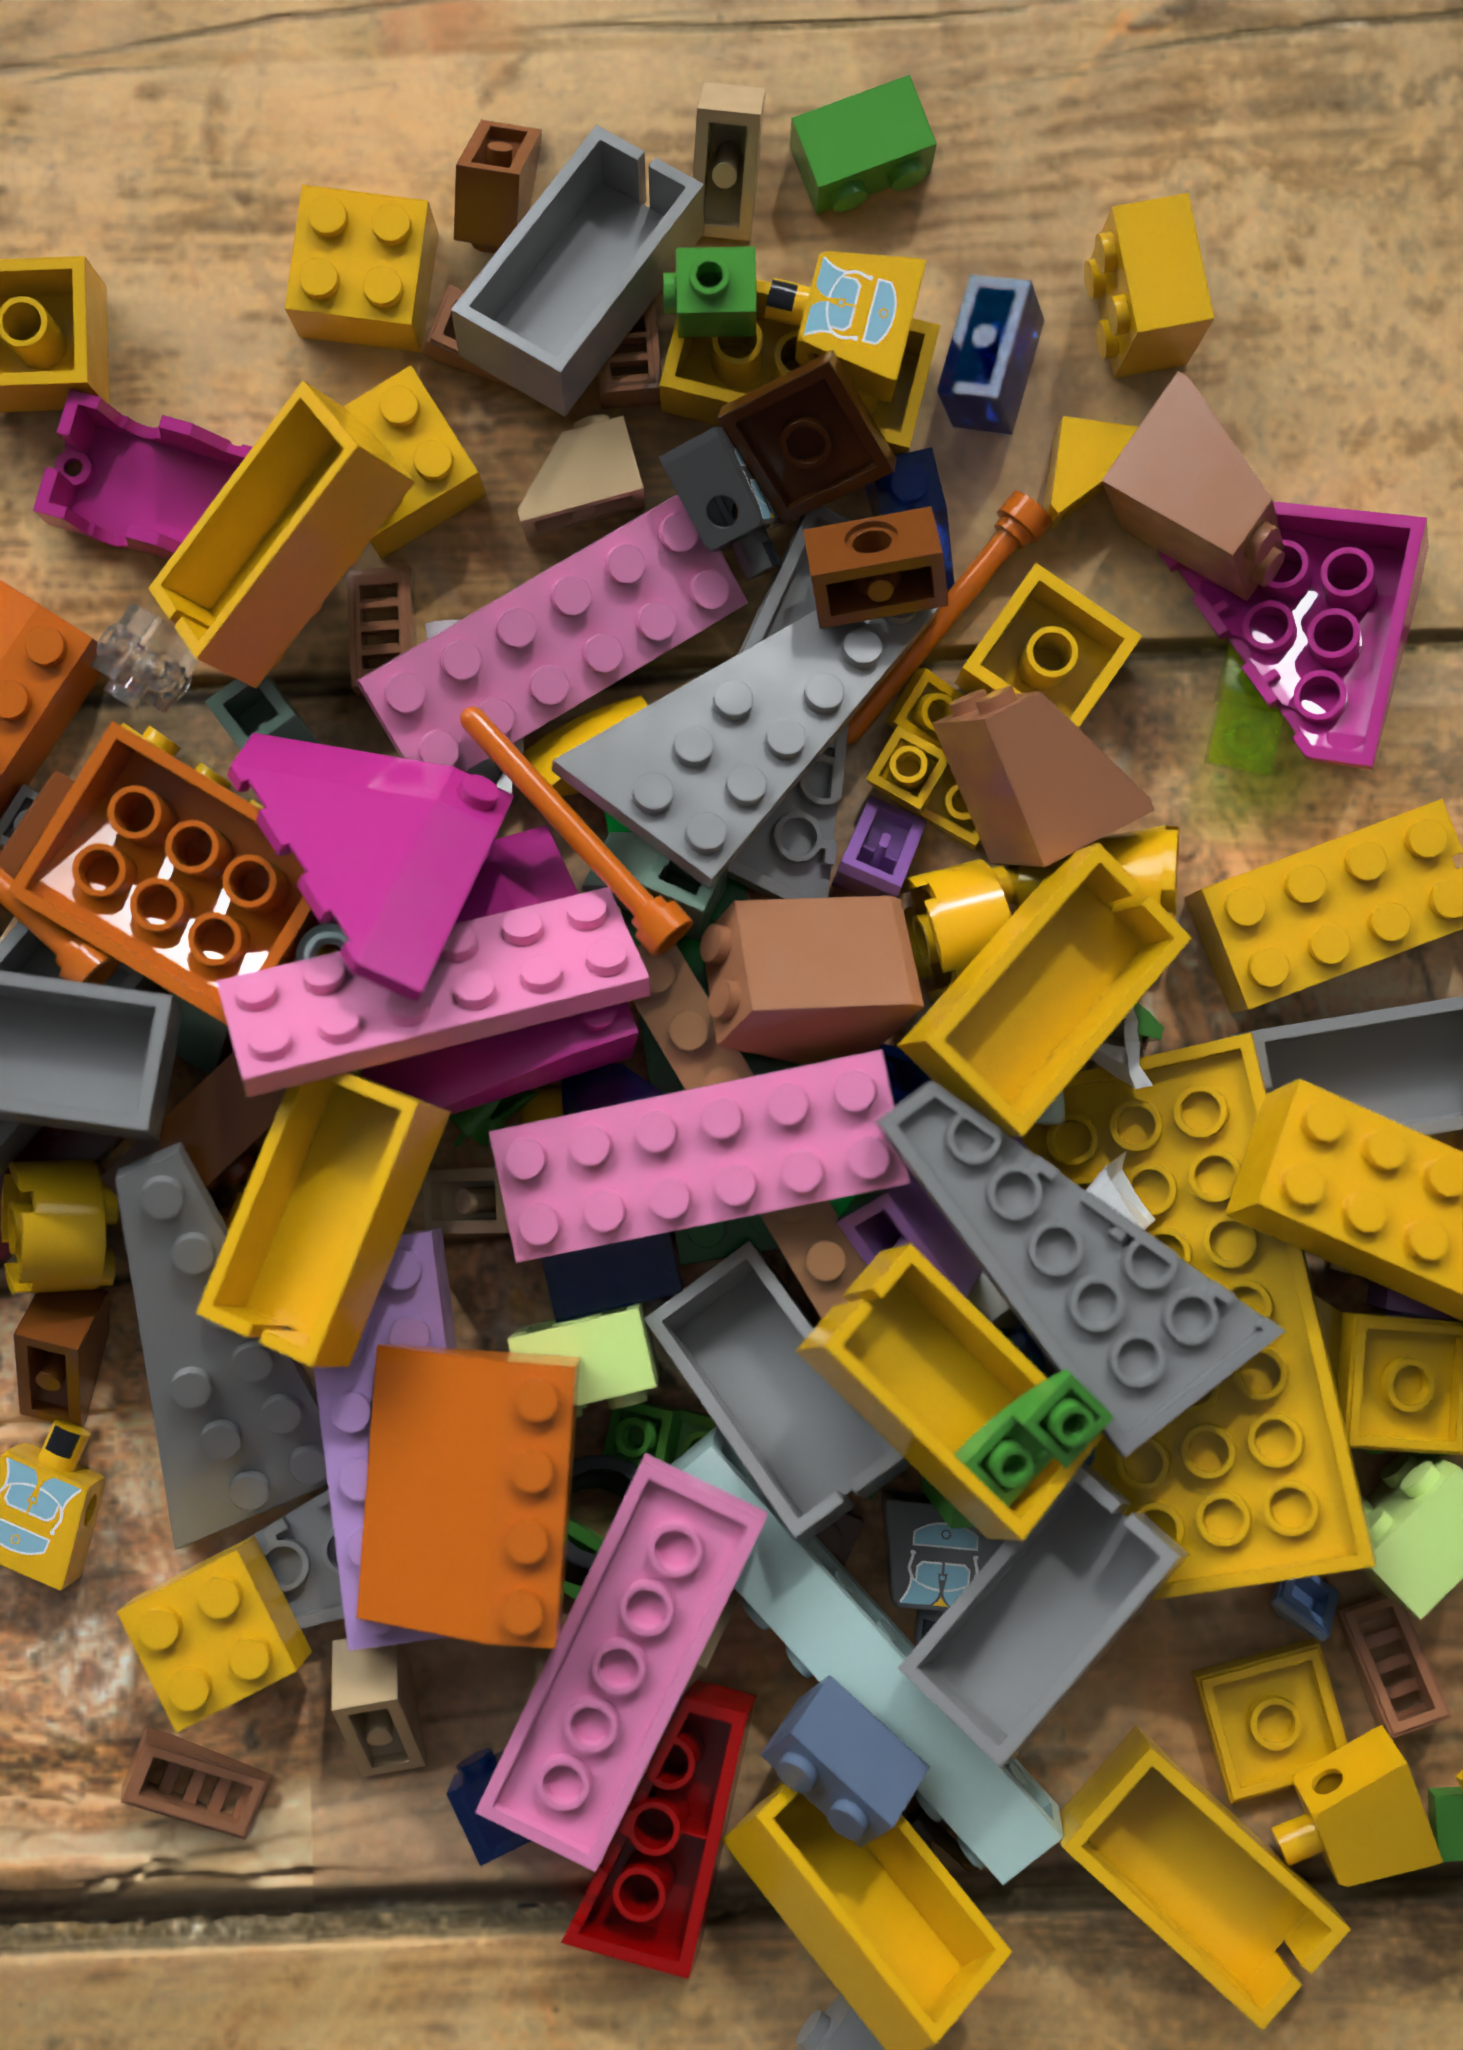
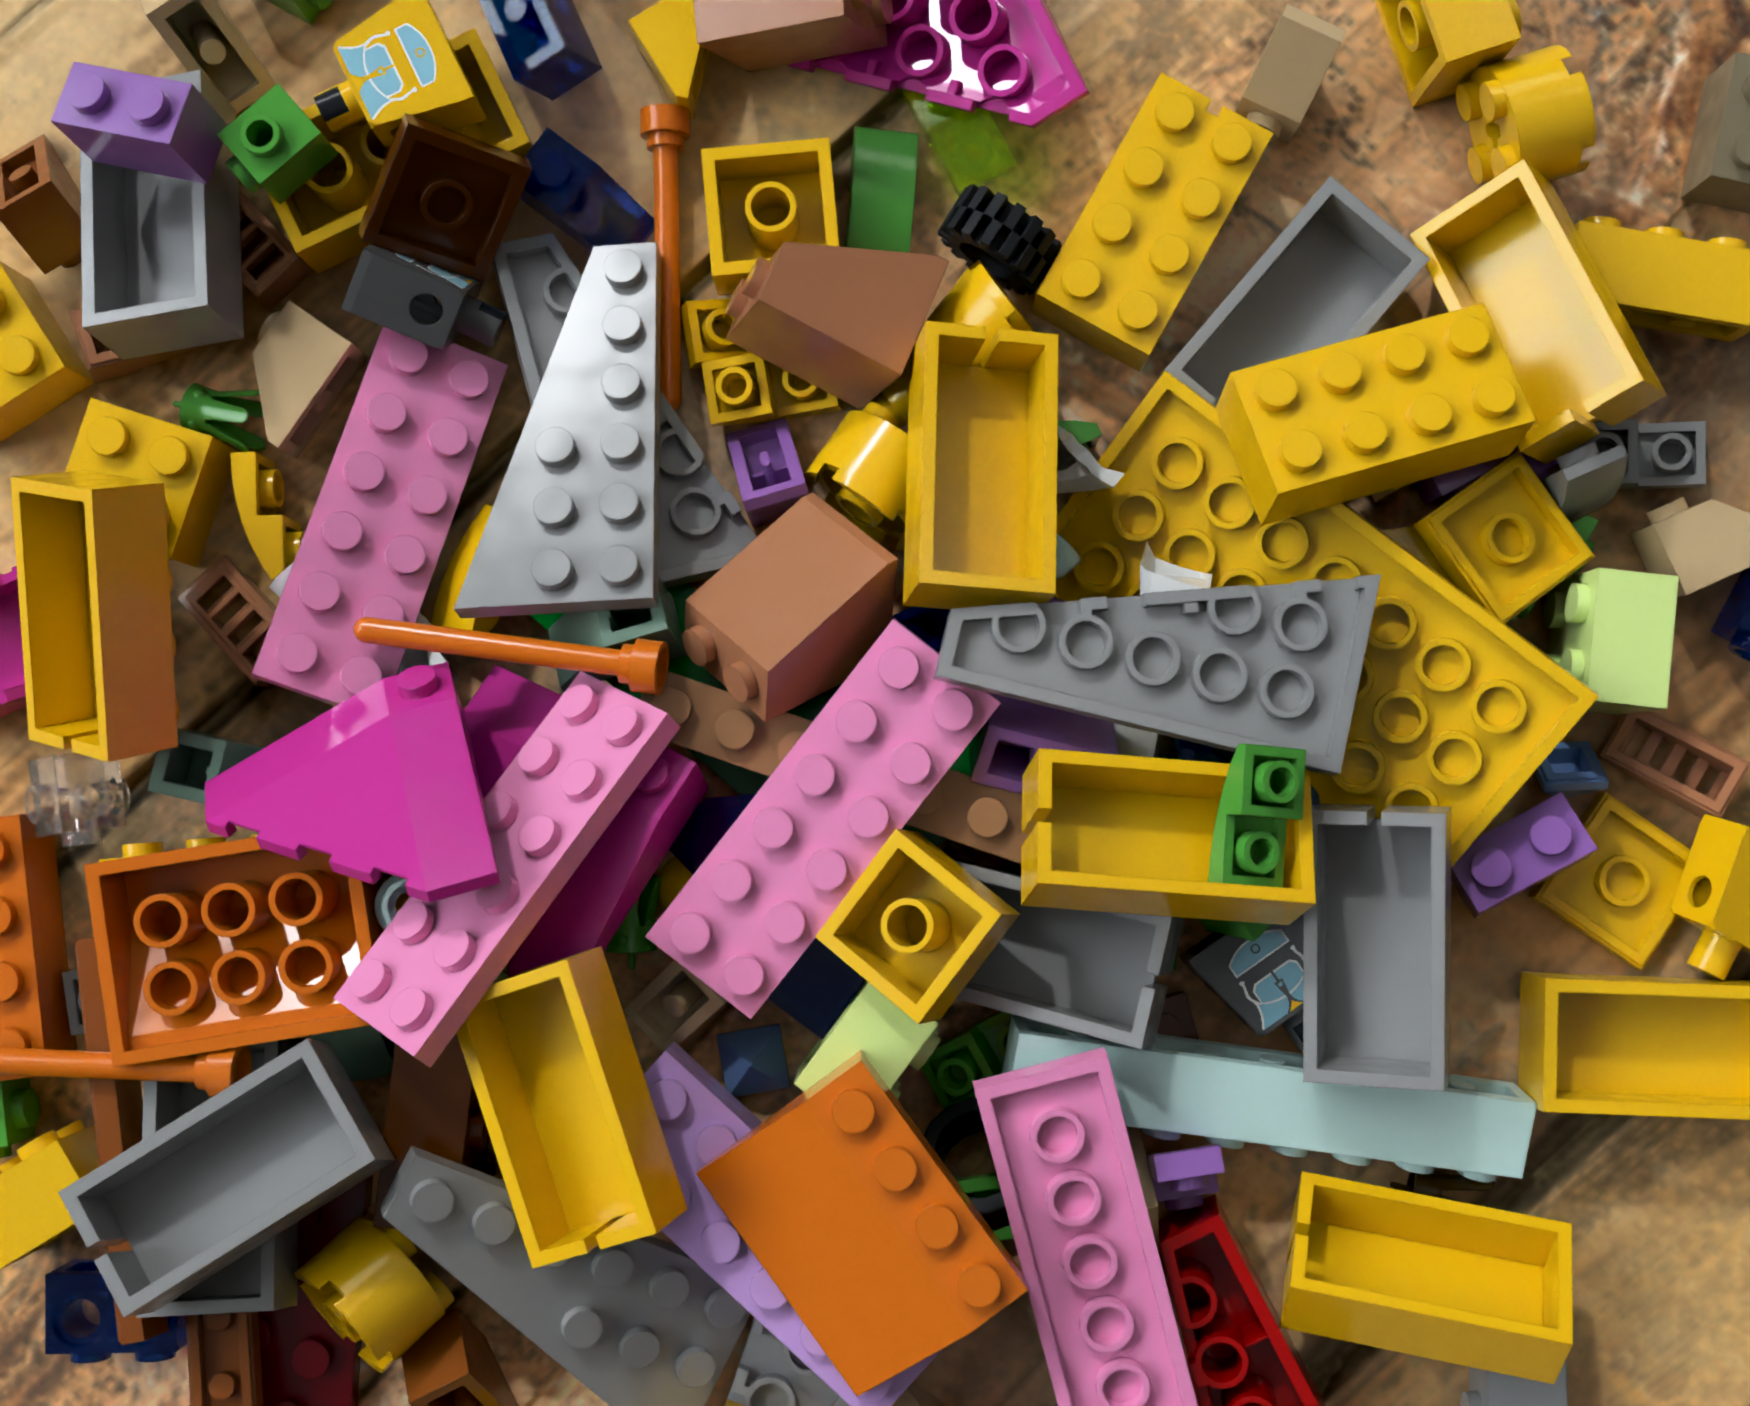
camera: 30 degrees left, 0 degrees up
(476, 542) = (257, 494): none -> yellow slope
(489, 1293) = (753, 1060): none -> medium blue slope
(492, 451) = (212, 410): none -> bright green piece
(625, 189) = (140, 122): none -> medium lavender brick
(702, 1299) = (917, 926): none -> yellow brick
(746, 1663) = (1185, 1175): none -> medium lavender slope
(845, 1762) = (1324, 1187): sand blue brick -> none
(876, 567) = (580, 253): dark orange brick -> none
(1148, 708) = (881, 189): none -> bright green slope
(1210, 823) = (1001, 237): none -> black tyre
(1212, 1636) = (1521, 855): none -> medium lavender brick

